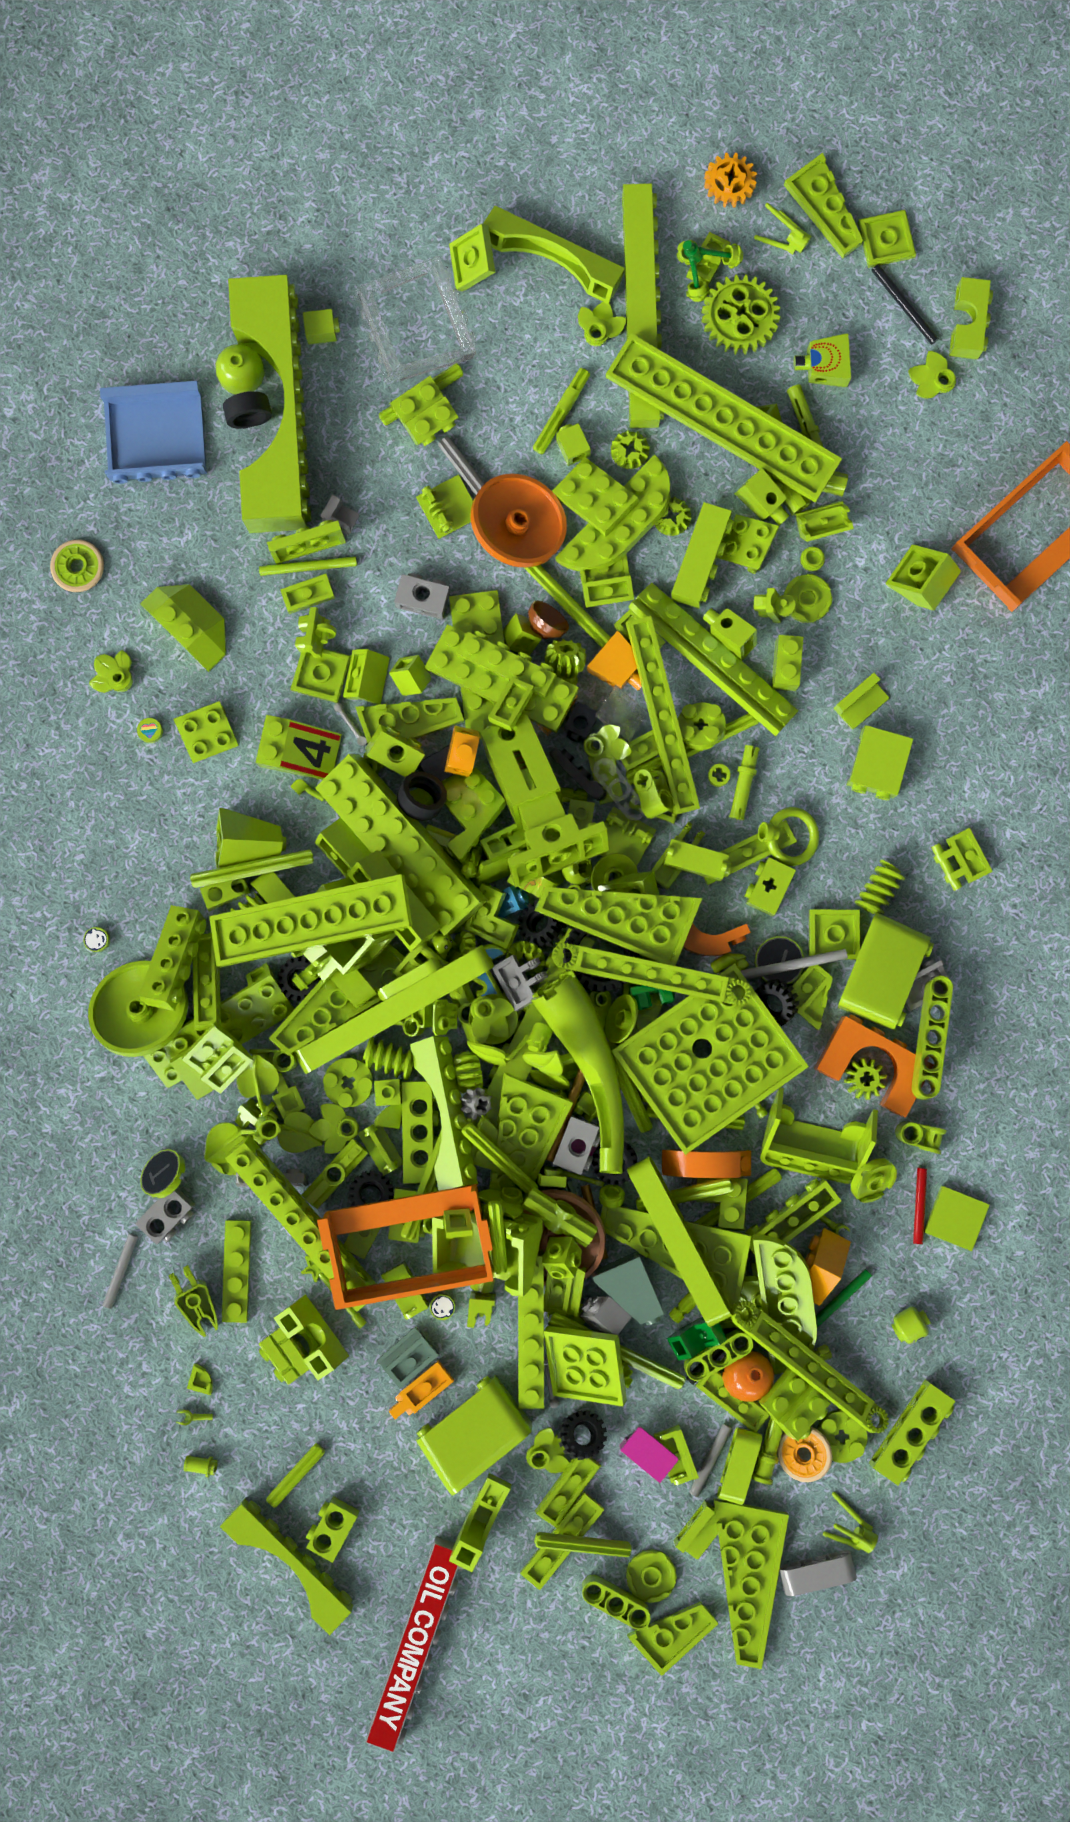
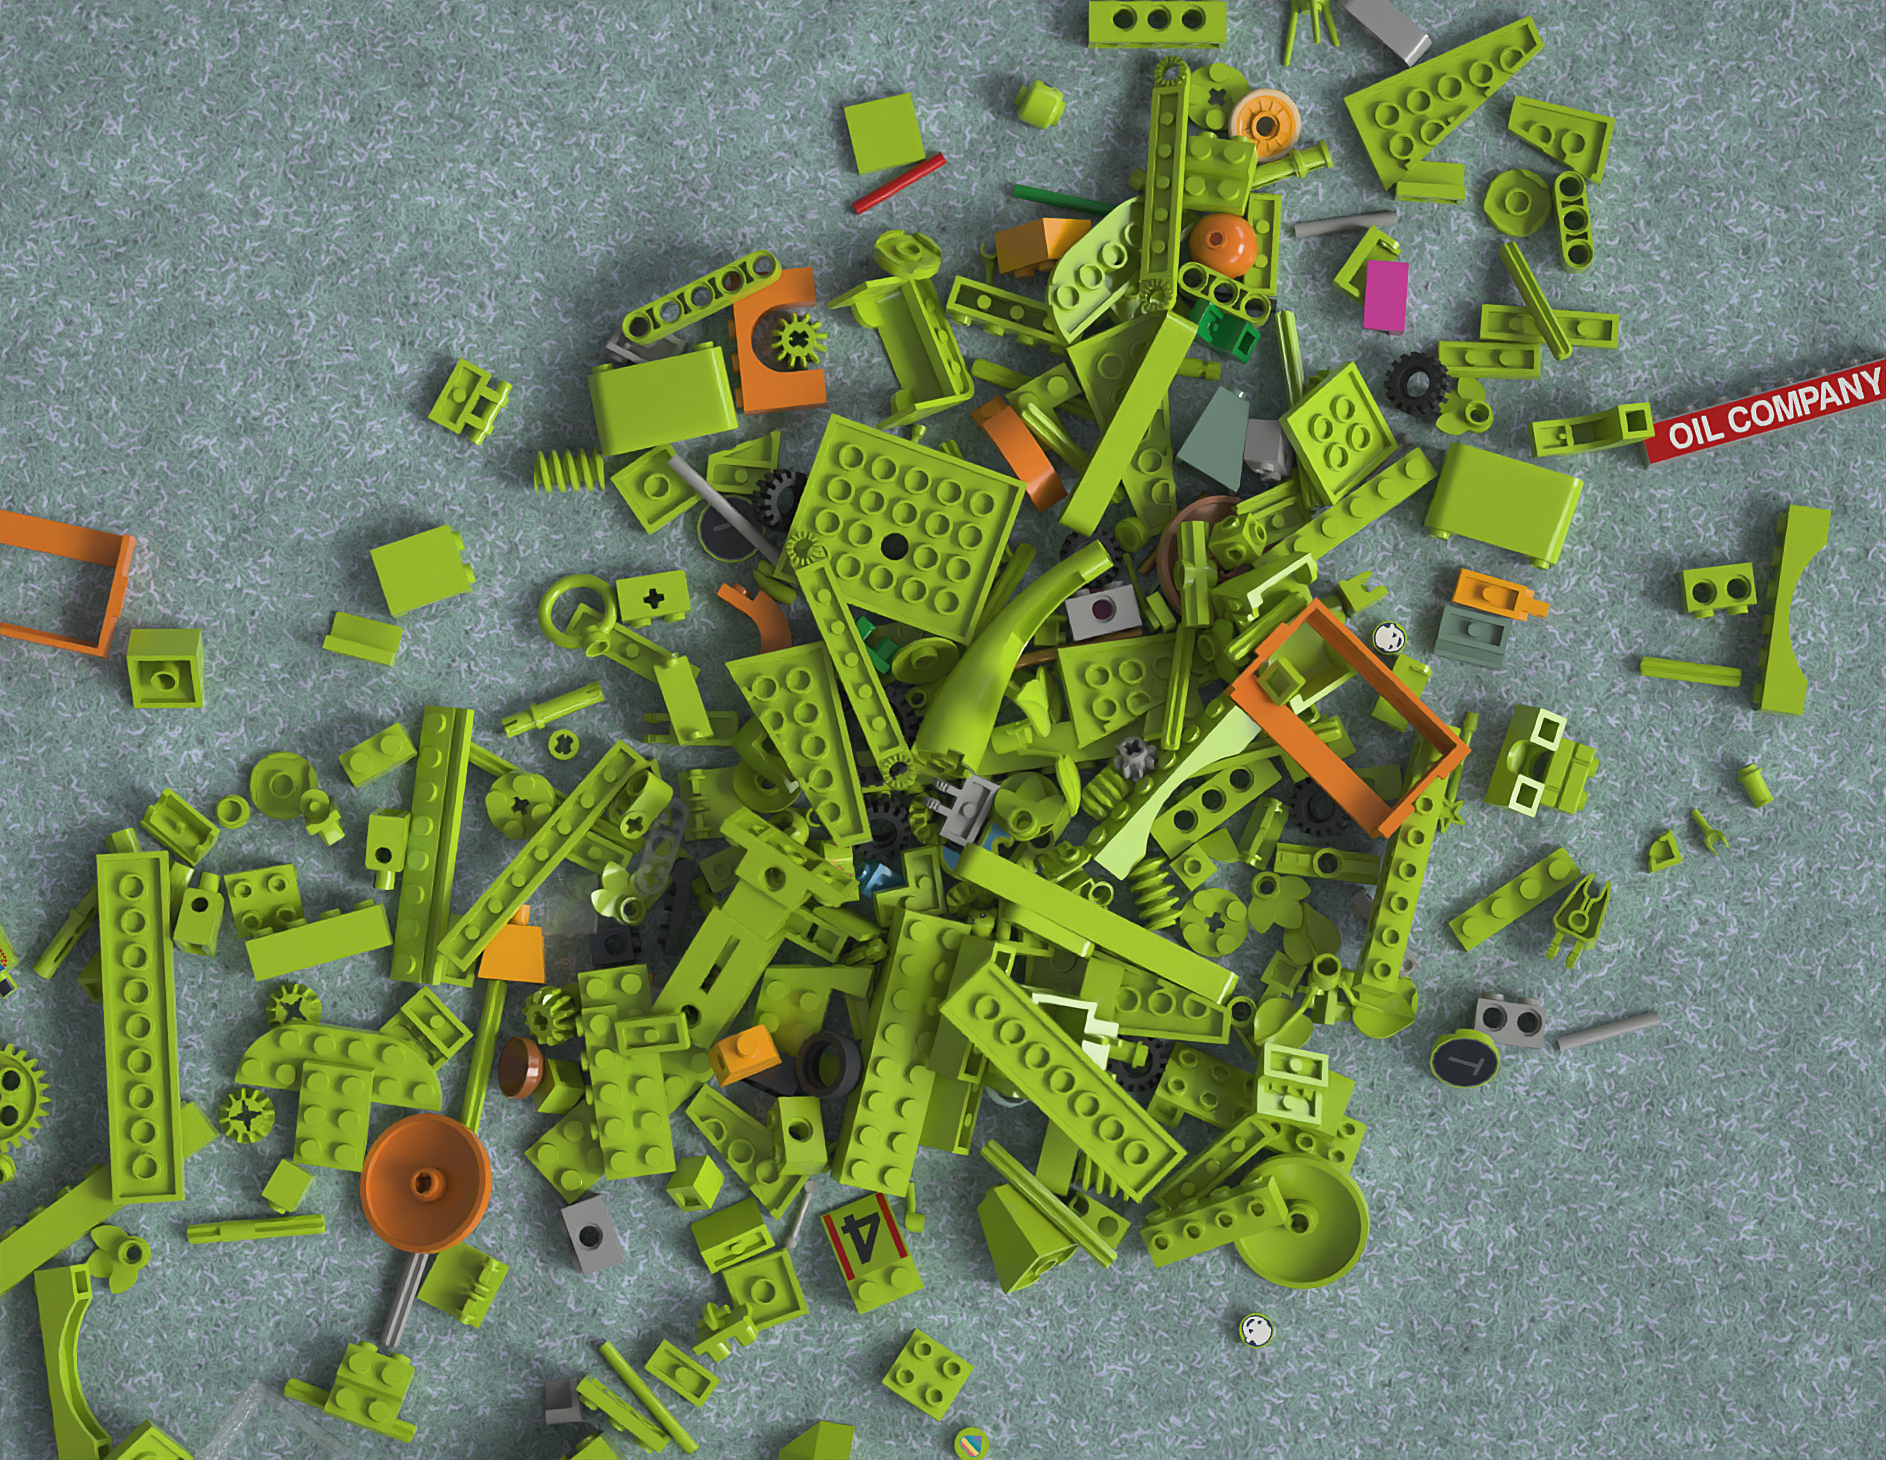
camera: 125 degrees left, 0 degrees up
(739, 1466) = (1328, 188): lime beam -> none
(924, 1136) = (818, 230): lime piece -> none

